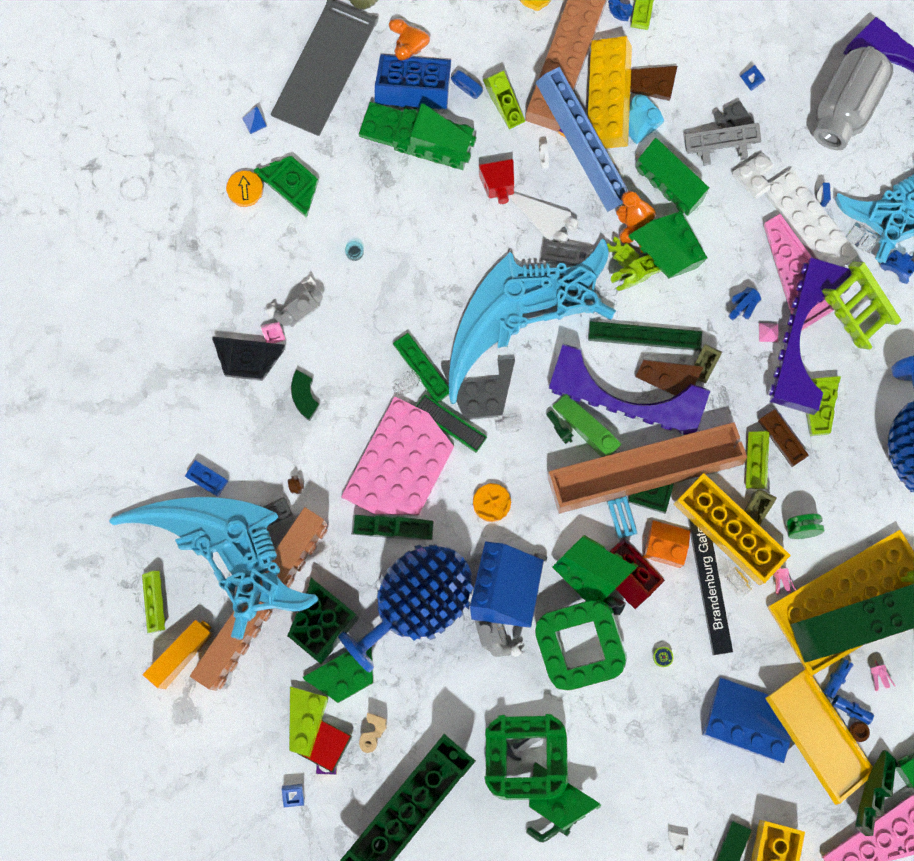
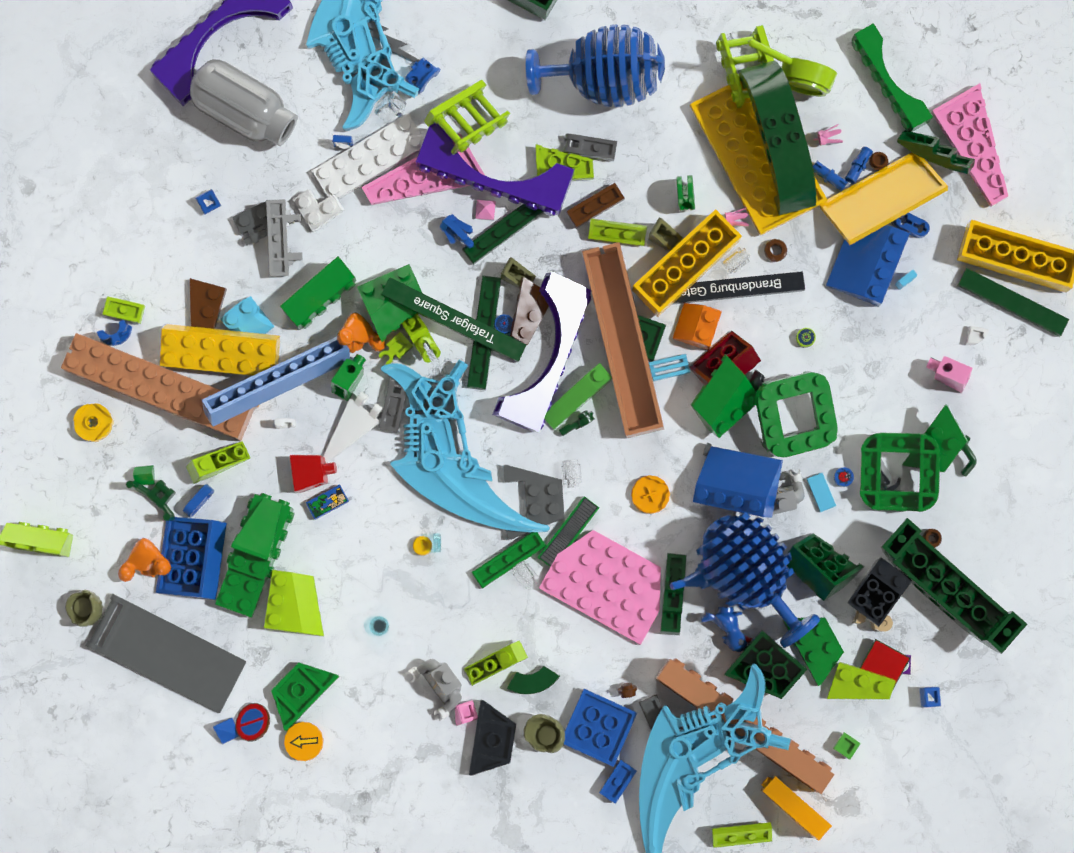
camera: 85 degrees left, 5 degrees up
(242, 707) = (846, 745): none -> bright green plate
(251, 404) = (544, 733): none -> olive piece
(259, 458) = (599, 727): none -> blue plate
(261, 141) = (252, 722): none -> piece
(321, 359) = (496, 662): none -> lime slope
(365, 582) = (727, 621): none -> blue animal
(372, 171) = (293, 604): none -> lime wedge
(399, 736) = (879, 591): none -> black slope
(405, 543) = (693, 580): none -> blue piece
(424, 677) = (821, 566): none -> dark green wedge
(432, 287) = (422, 545): none -> yellow tile
(435, 298) = (436, 542): none -> clear light blue tile
(459, 788) = (938, 538): none -> reddish brown plate
(470, 46) = (153, 496): none -> dark green piece
(470, 198) = (327, 502): none -> tile
(488, 37) = (144, 475): none -> green slope
(502, 677) = (821, 492): none -> medium azure piece
(519, 700) = (843, 477): none -> tile
(591, 208) = (348, 377): none -> green torso
(631, 819) = (956, 378): none -> bright pink torso
(654, 353) = (503, 323): none -> dark blue tile
(655, 302) = (453, 319): none -> dark green tile
(733, 763) = (906, 279): none -> medium azure tile
(744, 623) = (775, 242): none -> reddish brown piece
(746, 347) = (501, 232): none -> dark green tile
(788, 767) = (913, 220): none -> blue beam
(843, 431) = (590, 147): none -> flat silver plate

